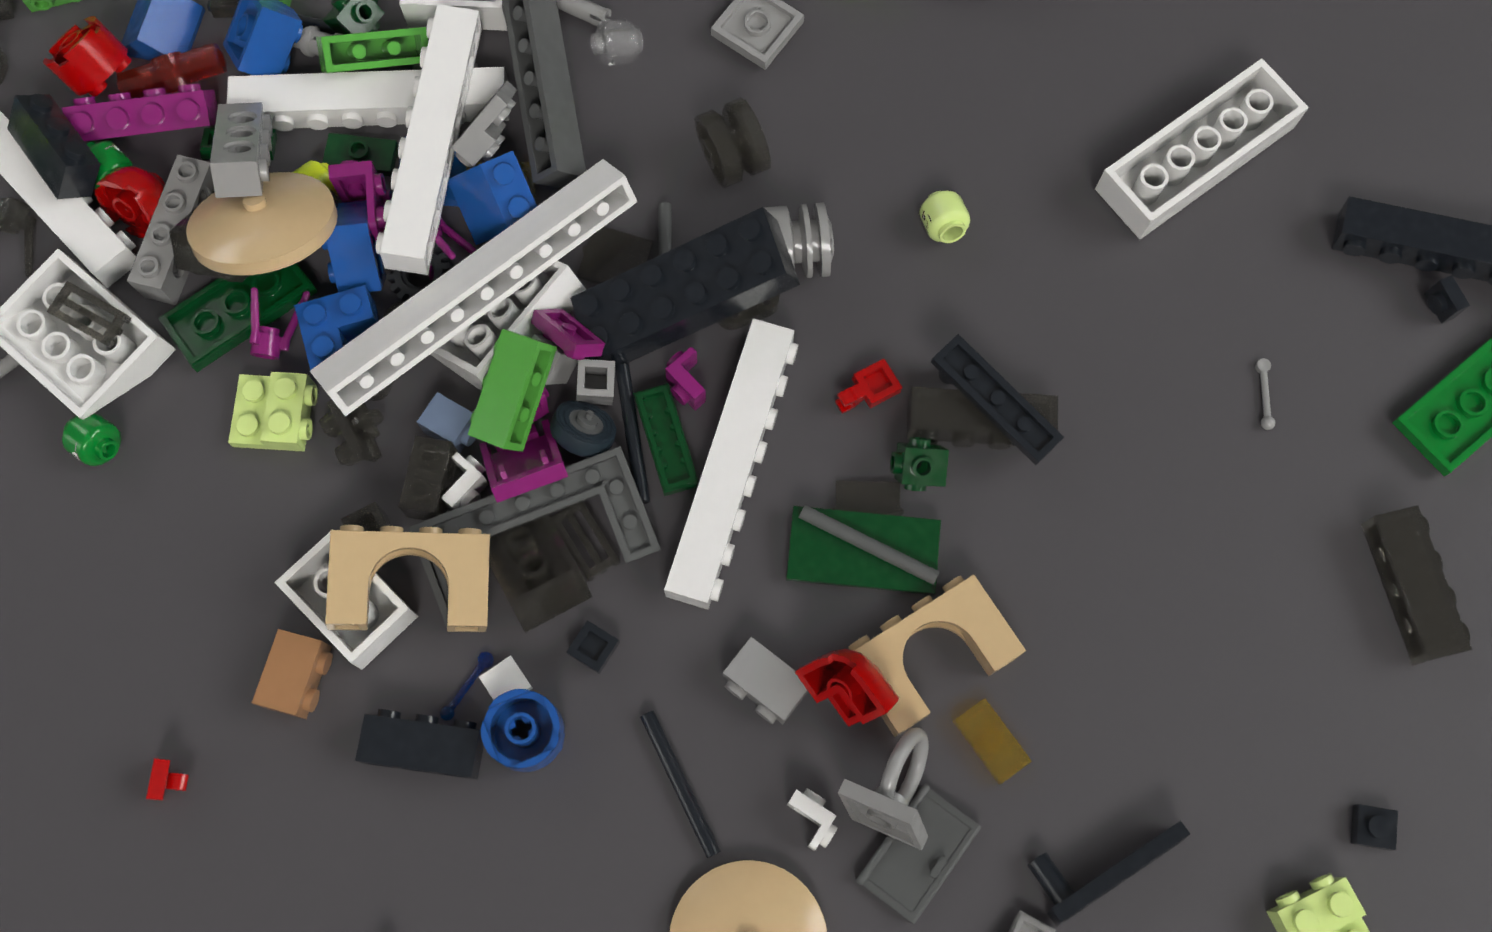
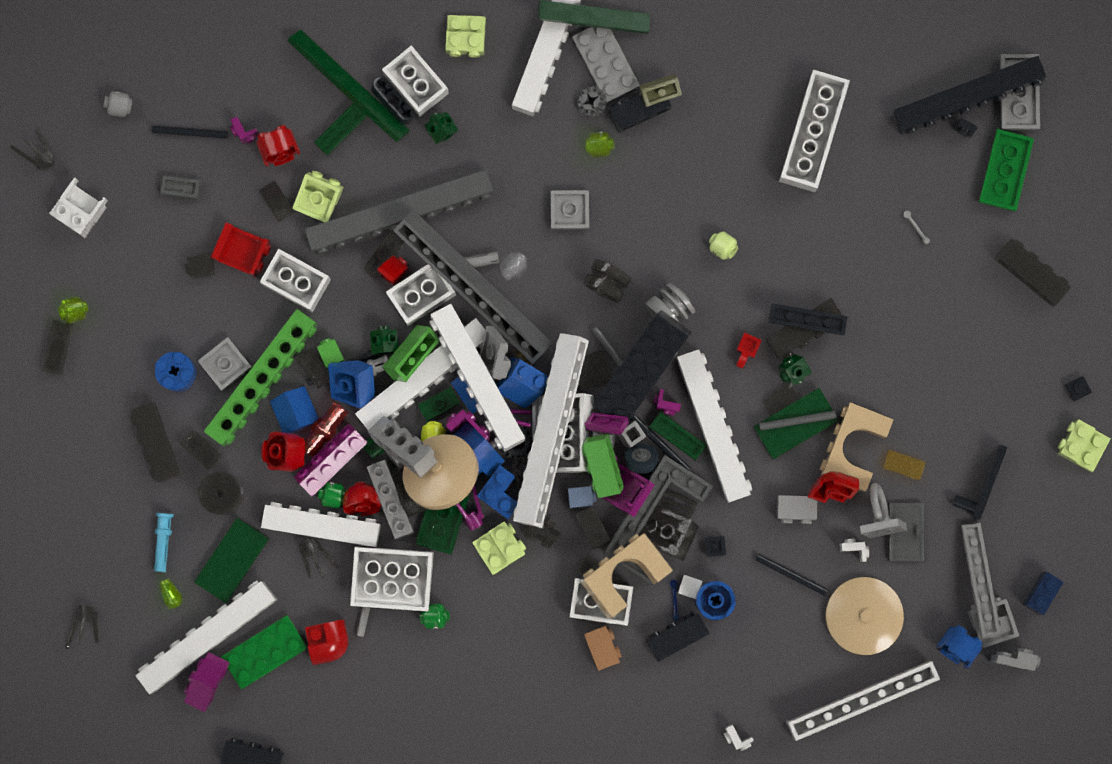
camera: 35 degrees left, 10 degrees up
(53, 146) = (310, 504): black brick -> none
(113, 328) = (412, 563): clear smoke tile -> none
(162, 779) = (584, 727): red tile -> none
(468, 486) = (612, 522): white bracket -> none

